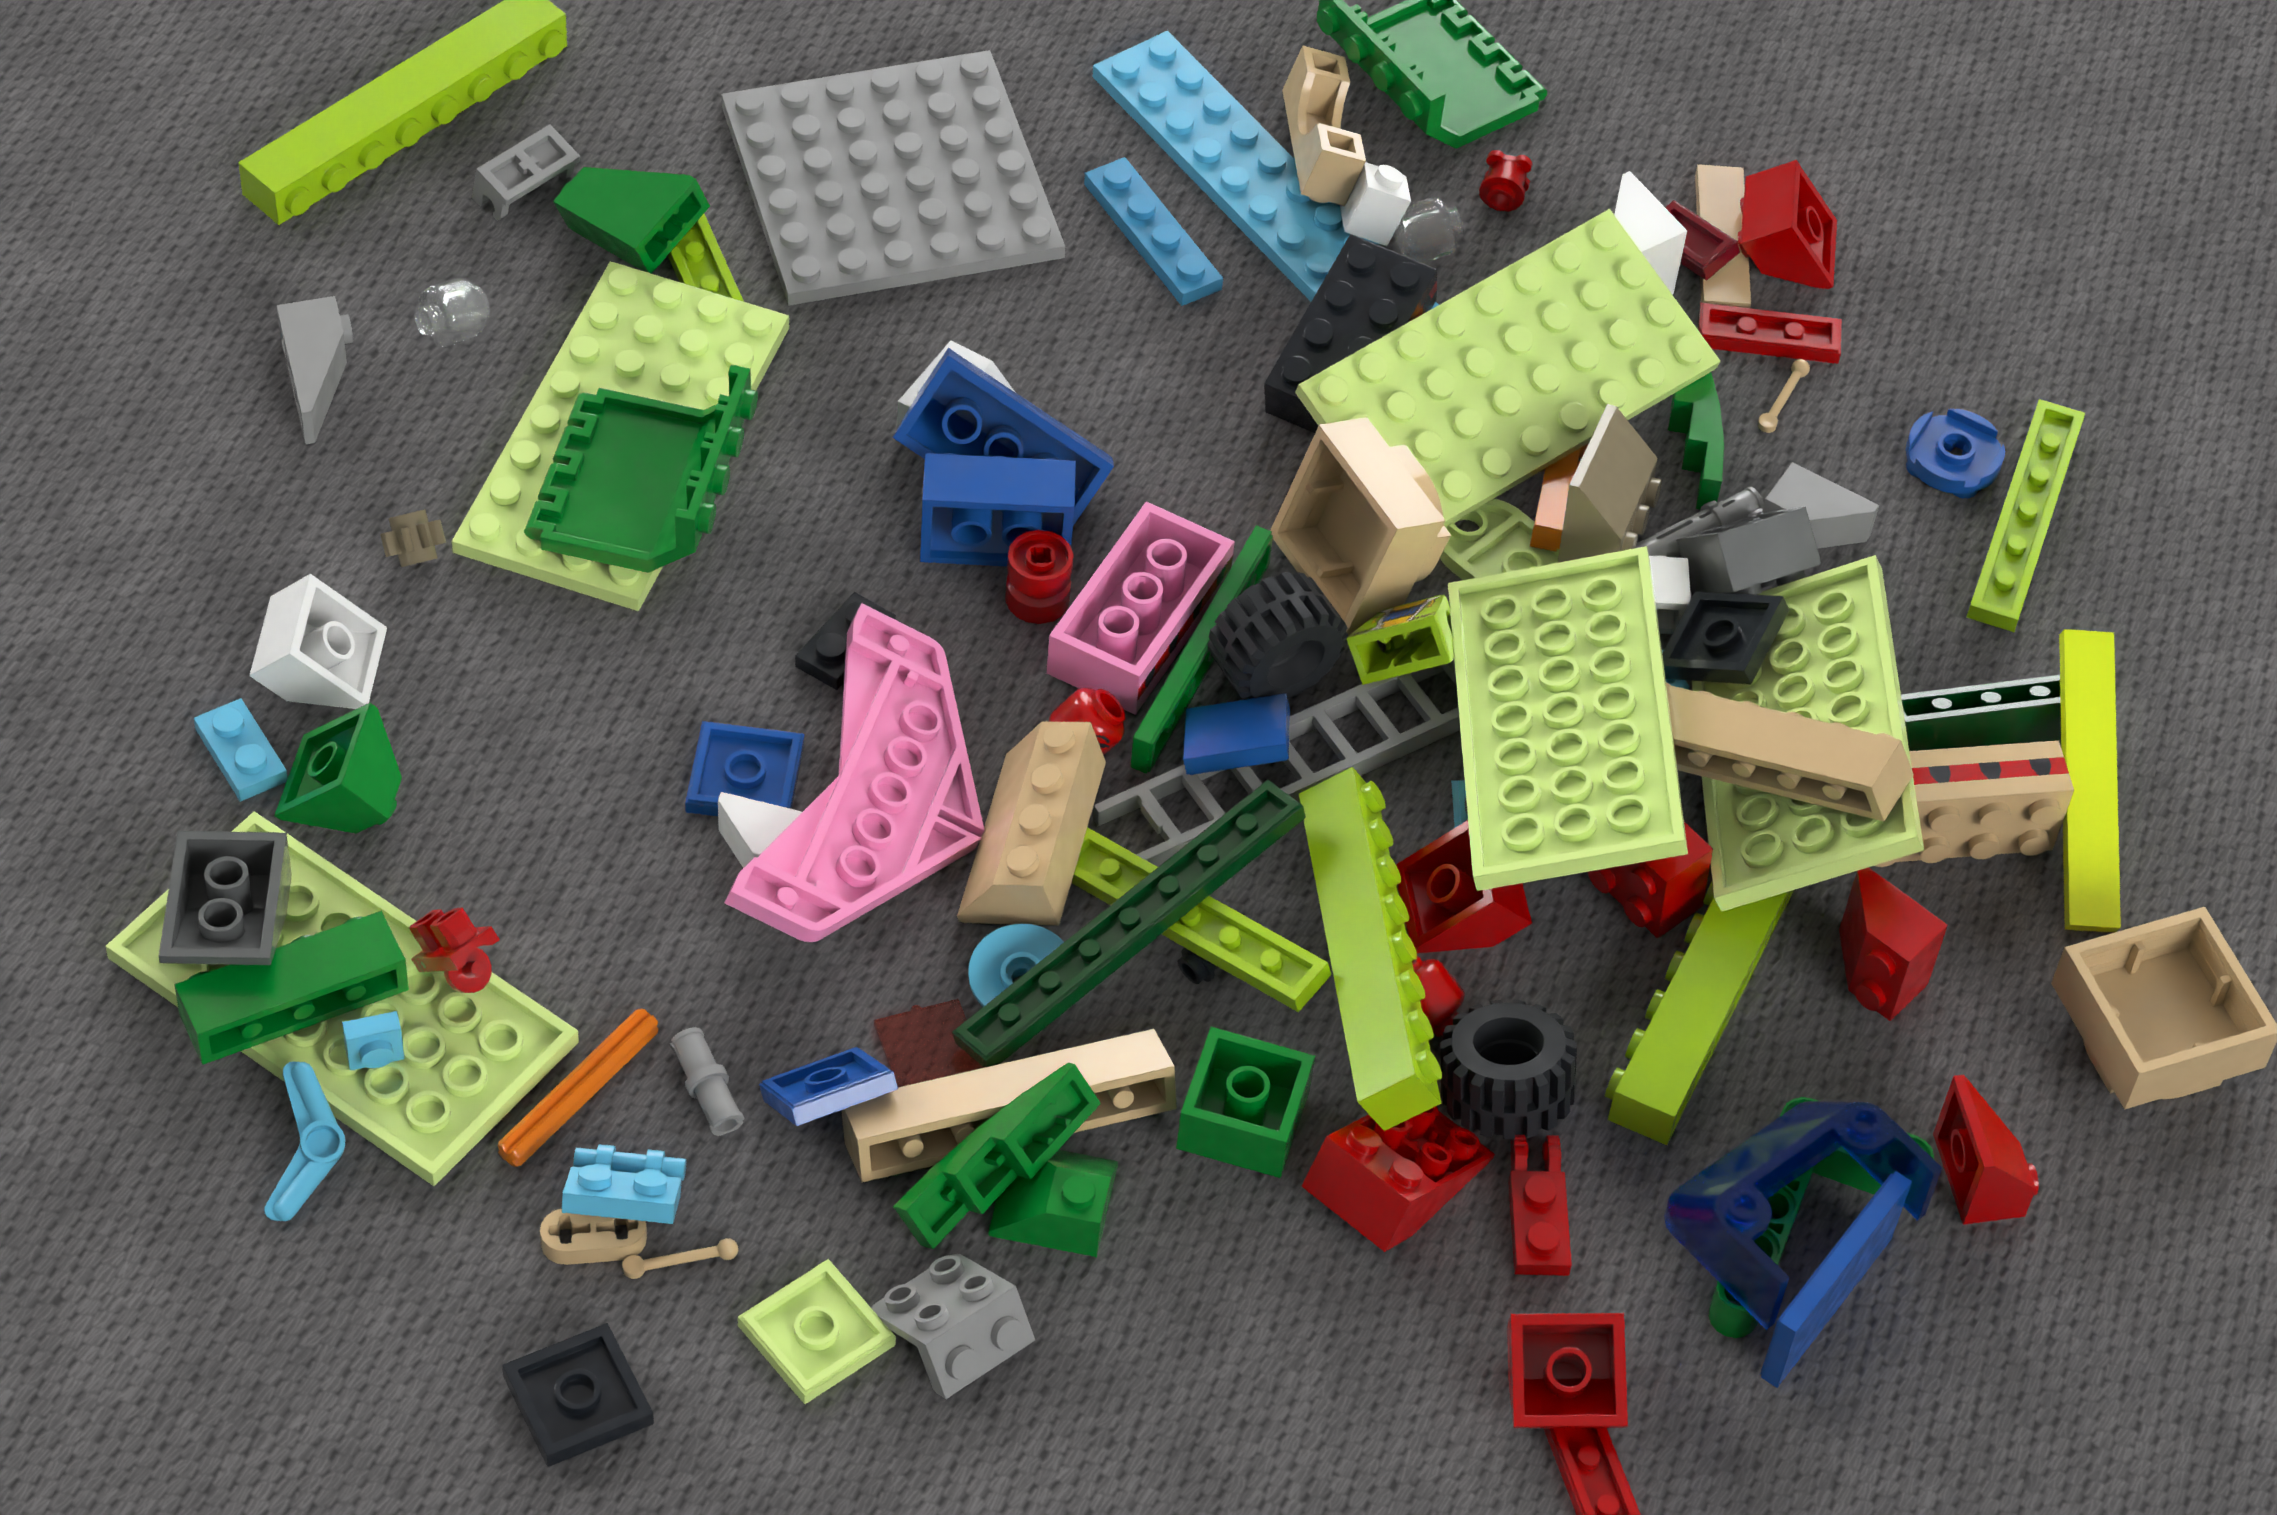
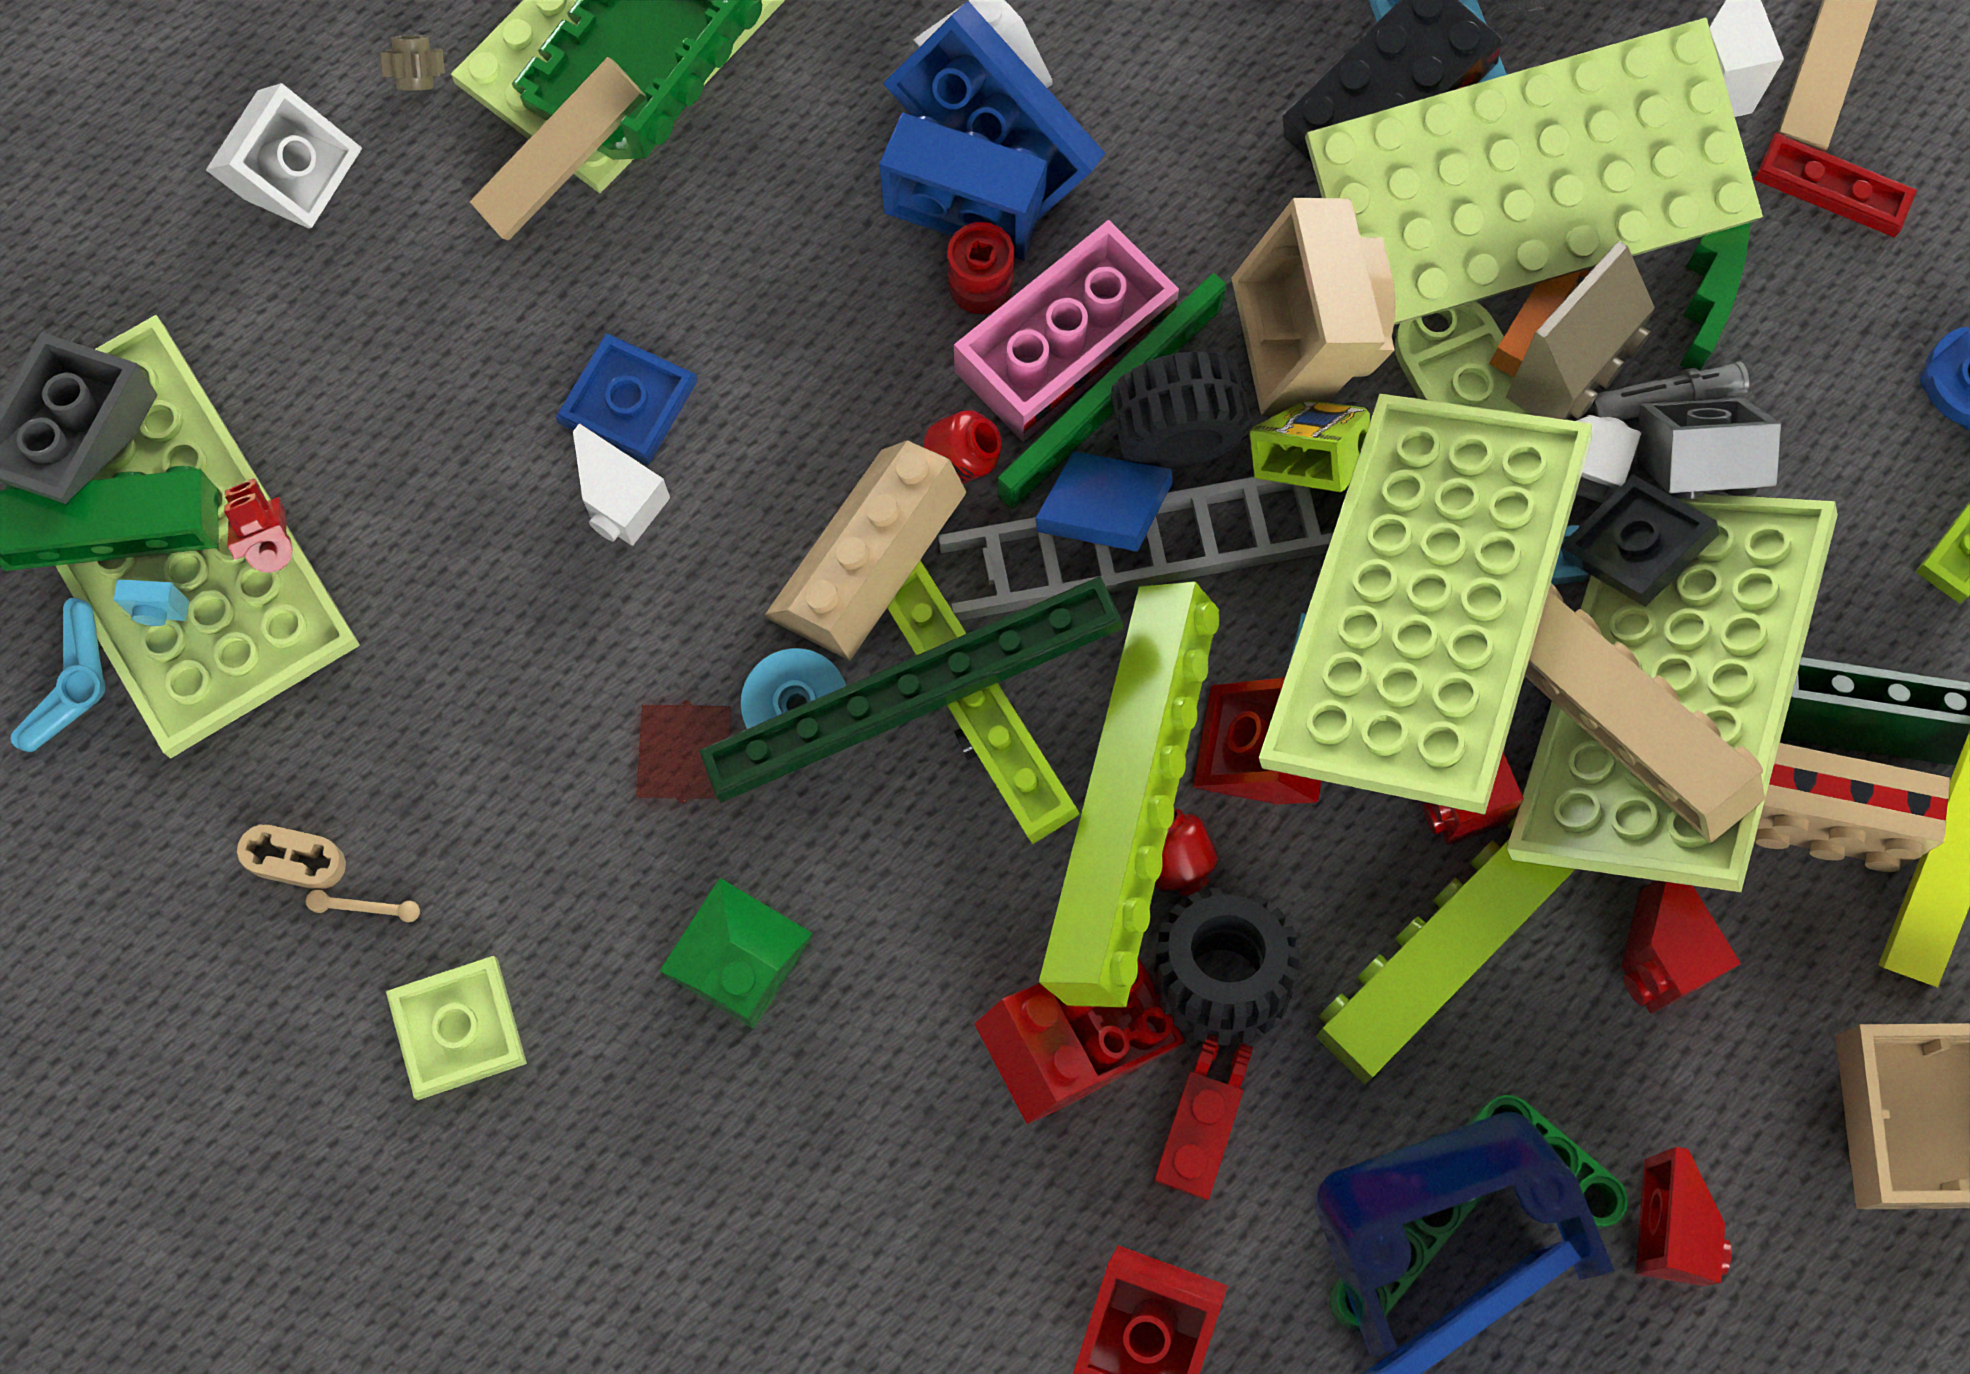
camera: 25 degrees right, 20 degrees up
(240, 749) = (179, 241): medium azure plate -> none
(343, 775) = (251, 300): green slope -> none
(577, 1087) = (339, 694): orange axle -> none
(577, 1394) = (206, 1028): black plate -> none
(596, 572) = (558, 149): none -> tan tile
(624, 1184) = (325, 831): medium azure plate -> none
(707, 1081) = (456, 726): light grey pin -> none
(826, 651) = (776, 281): black plate -> none
(827, 1086) = (556, 775): blue tile -> none
(899, 797) = (721, 494): bright pink wing -> none
(930, 1118) = (722, 846): tan brick -> none
(958, 1319) = (581, 1063): light grey bracket -> none
(991, 1157) = (694, 899): green slope -> none
(1245, 1102) = (950, 918): green brick -> none
(1705, 245) = (1805, 68): dark red tile -> none
(1768, 421) = (1795, 285): tan hinge -> none
(1788, 227) = (1901, 71): red slope -> none
(1833, 511) = (1805, 406): light grey slope -> none

